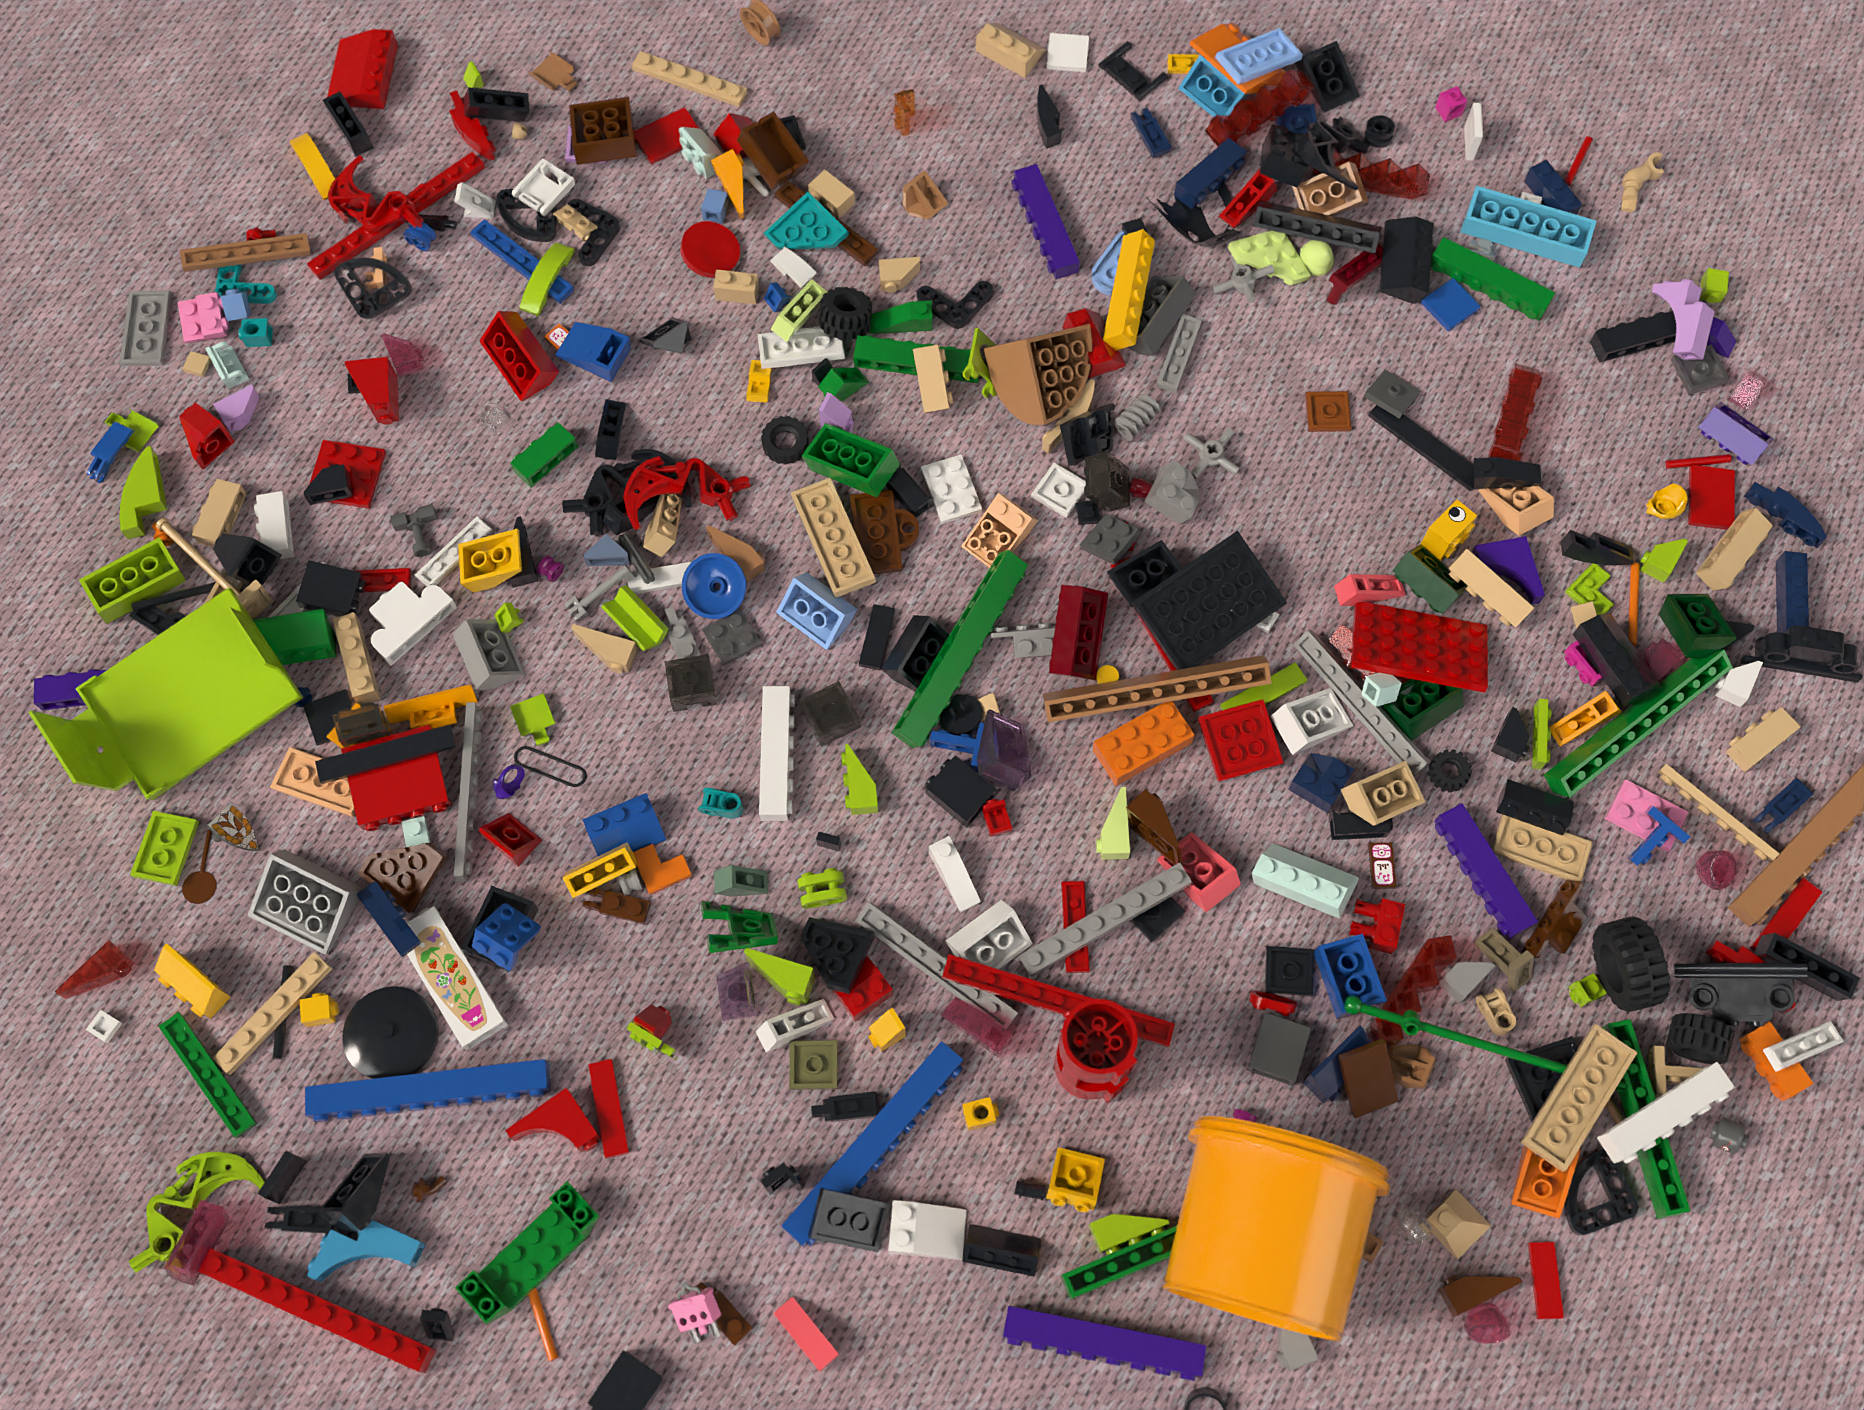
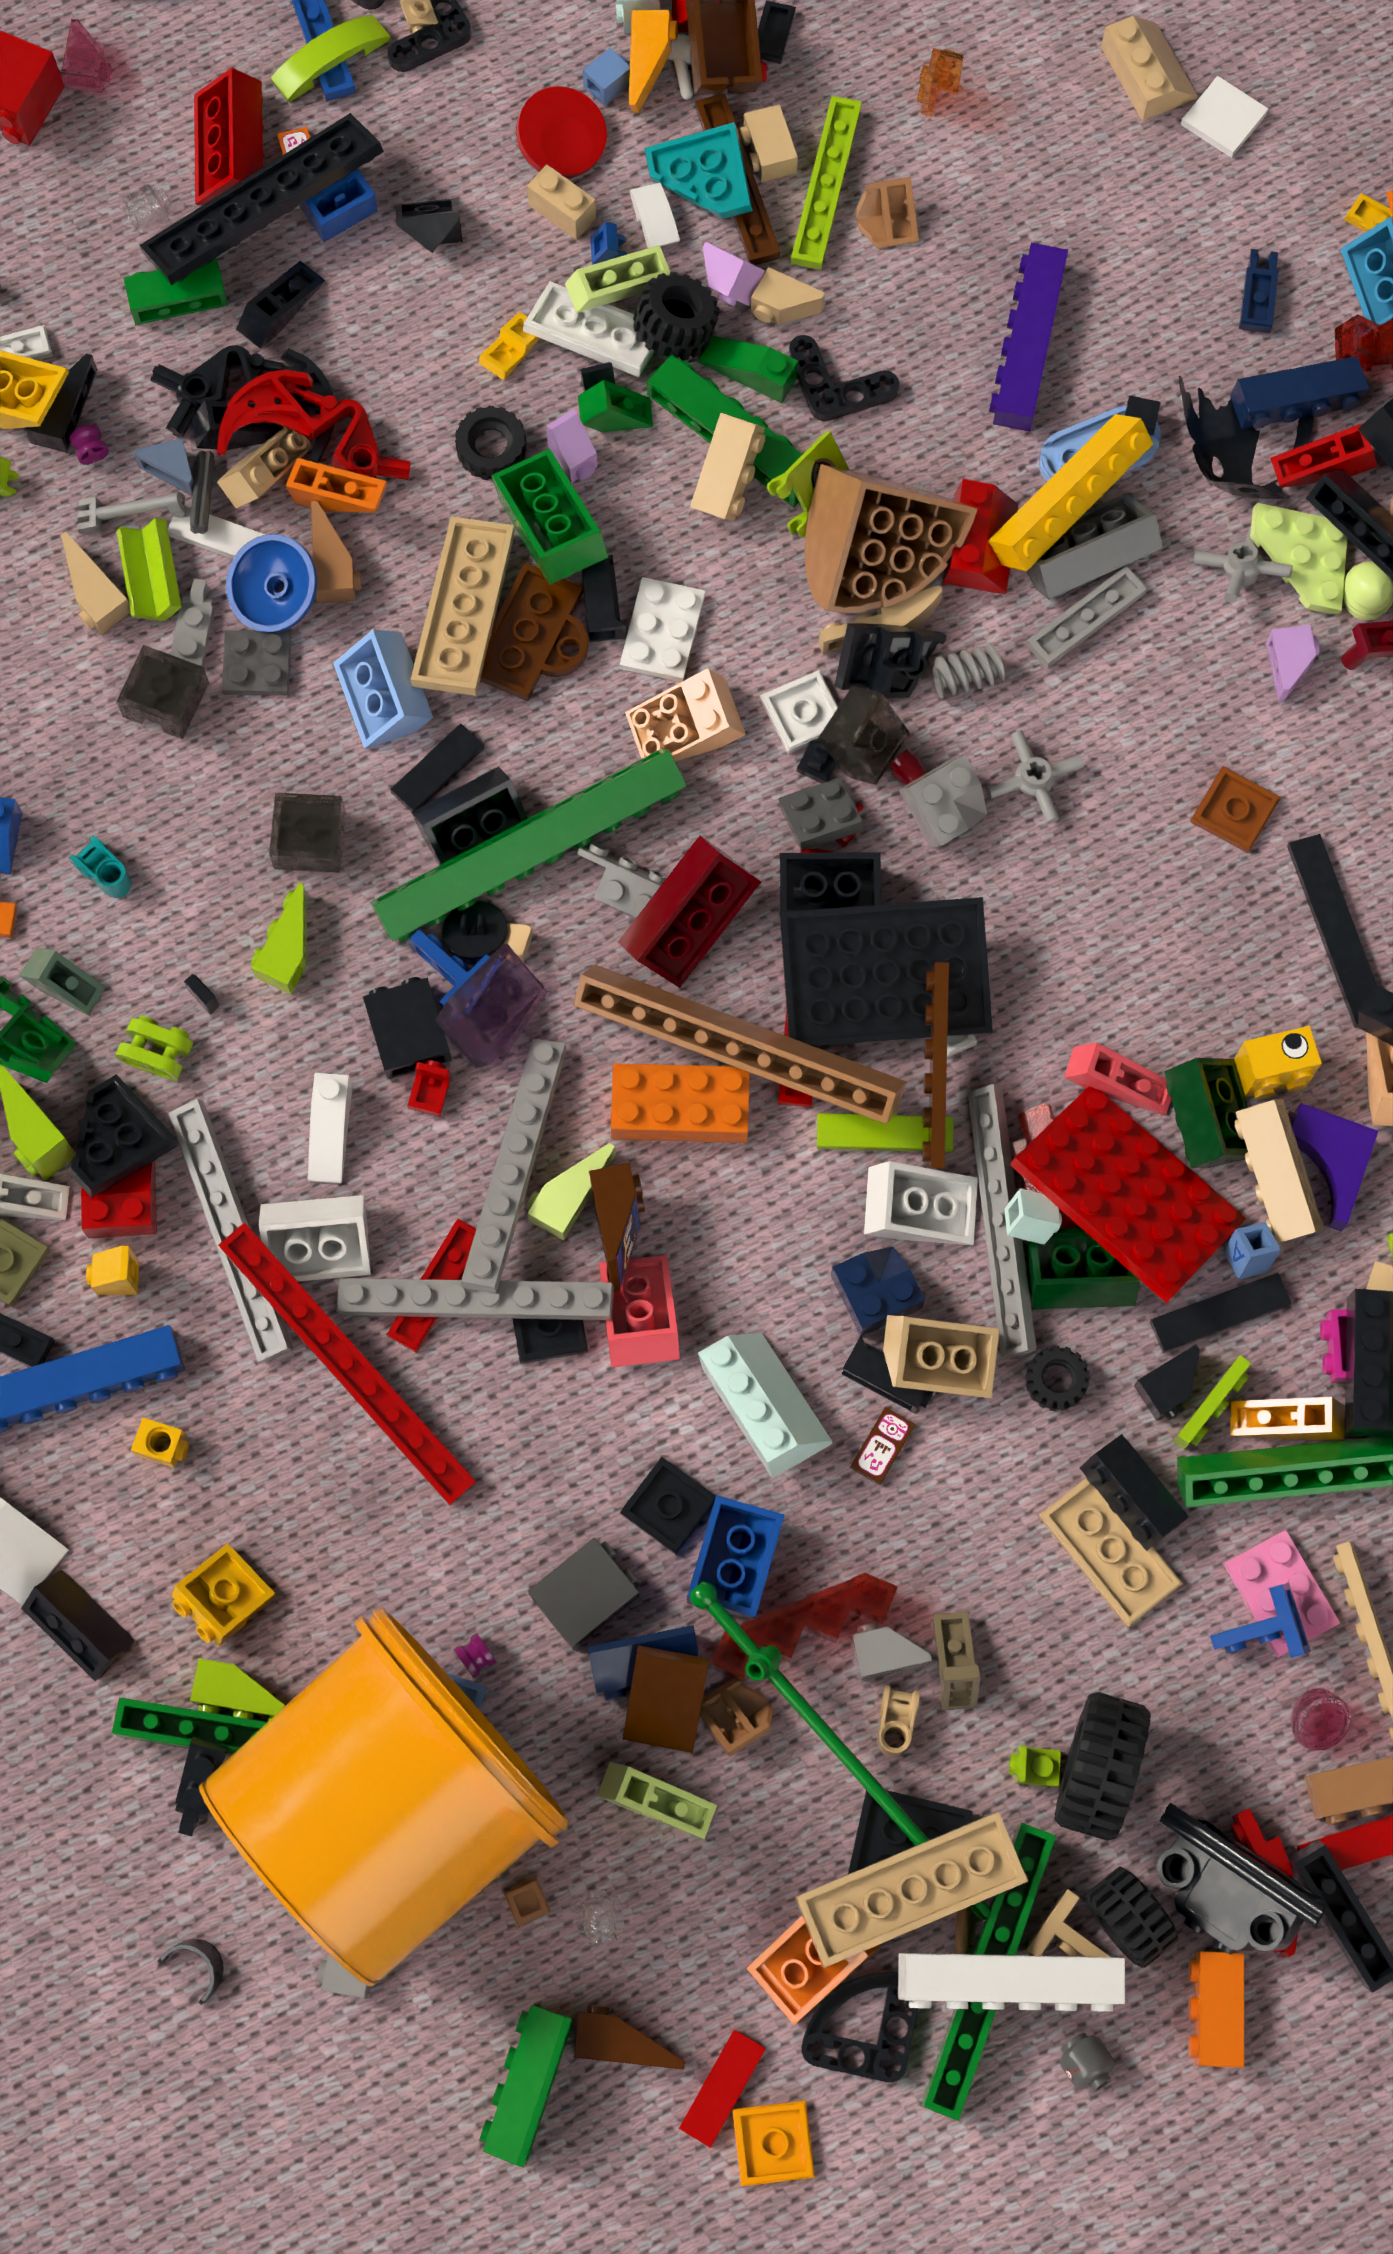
camera: 30 degrees right, 5 degrees up
(564, 375) = (261, 198): none -> black plate
(716, 512) = (334, 488): none -> orange slope
(775, 753) = (210, 844): white brick -> none
(860, 275) = (731, 275): none -> lavender slope
(876, 199) = (826, 183): none -> lime plate
(977, 1026) = (228, 1336): clear pink slope -> none
(1029, 1190) = (158, 1573): black pin -> none
(1048, 119) = (1129, 194): black slope -> none
(1076, 832) = (514, 1166): none -> light grey plate
(1096, 1050) = (327, 1448): red cylinder -> none
(1104, 1342) = (122, 1811): dark purple brick -> none
(1107, 674) = (697, 989): yellow tile -> none
(1127, 75) = (1284, 193): black plate -> none
(1140, 1295) = (201, 1761): none -> black hinge
(1240, 740) = (807, 1175): red plate -> none
(1263, 1000) = (618, 1531): red plate -> none
(1269, 631) = (936, 1051): none -> reddish brown plate
(1302, 314) = (1291, 656): none -> lavender slope
(1387, 924) = (830, 1525): red brick -> none
(1392, 394) = (1337, 835): dark grey plate -> none
(1397, 1140) = (656, 1799): none -> yellowish green slope
(1443, 1348) = (527, 2086): none -> green slope
(1457, 1224) = (659, 1948): tan slope -> none
(1485, 871) = (1009, 1534): dark purple brick -> none
(1486, 1324) = (605, 2091): clear pink hat -> none
(1505, 639) = (1252, 1250): none -> medium blue brick
(1508, 683) = (1220, 1312): none -> black tile
(1559, 922) = (1060, 1661): reddish brown bracket -> none
(1594, 1293) = (773, 2143): none -> light orange tile
(1803, 1046) = (1265, 2012): white tile -> none

